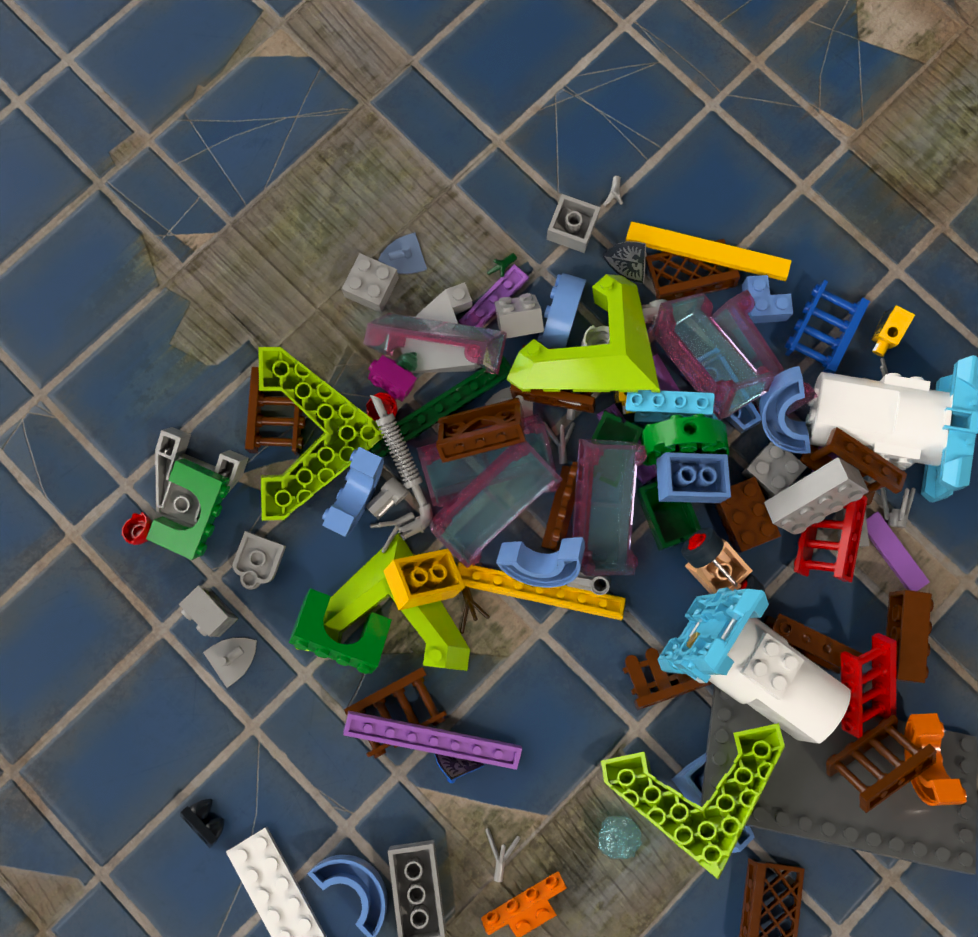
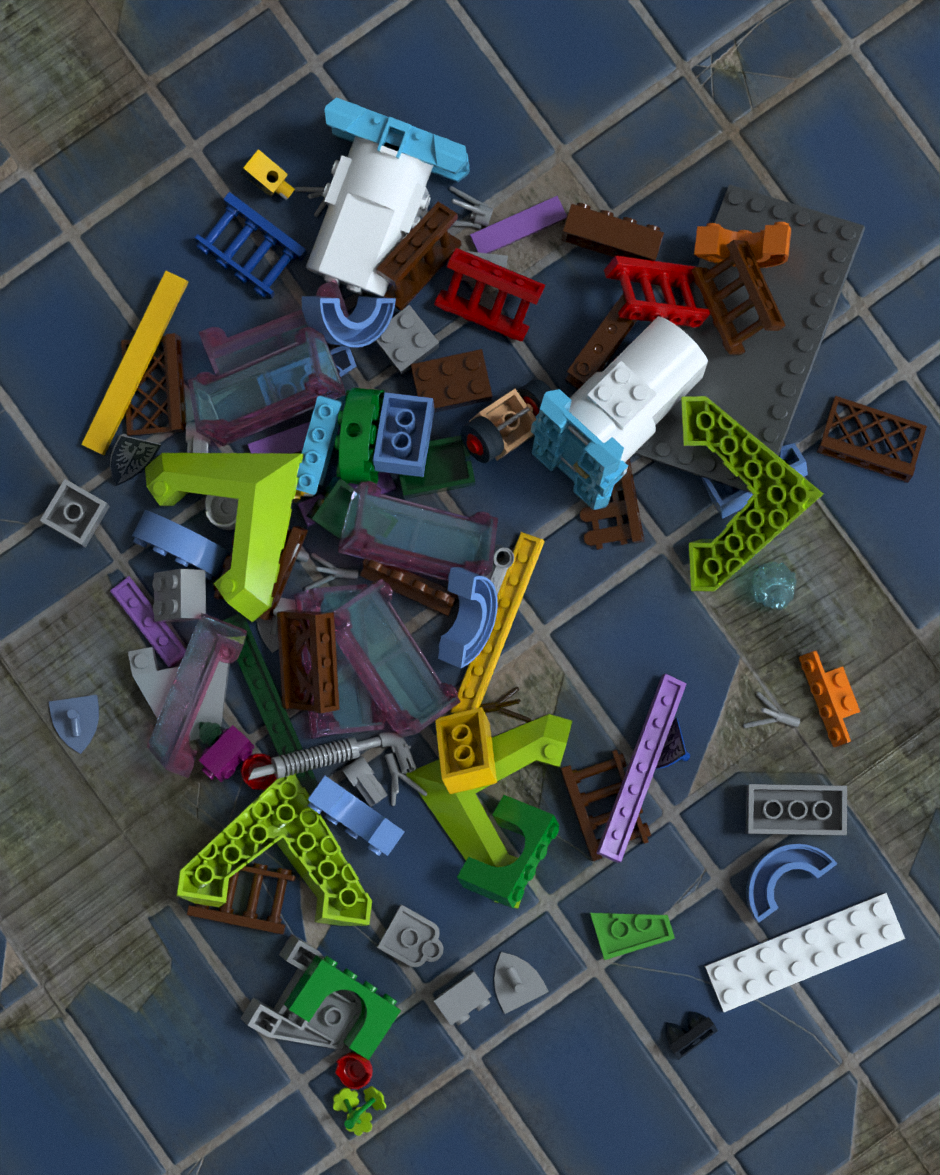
camera: 85 degrees left, 5 degrees up
(97, 540) = (358, 1120): none -> lime plant
(286, 753) = (630, 932): none -> bright green wing
(370, 283) = (106, 762): light grey brick -> none
(502, 264) = (109, 604): dark green bar -> none
(615, 191) = (40, 456): light grey bar -> none
(767, 307) = (213, 313): medium blue brick -> none
(816, 496) = (447, 304): light grey brick -> none

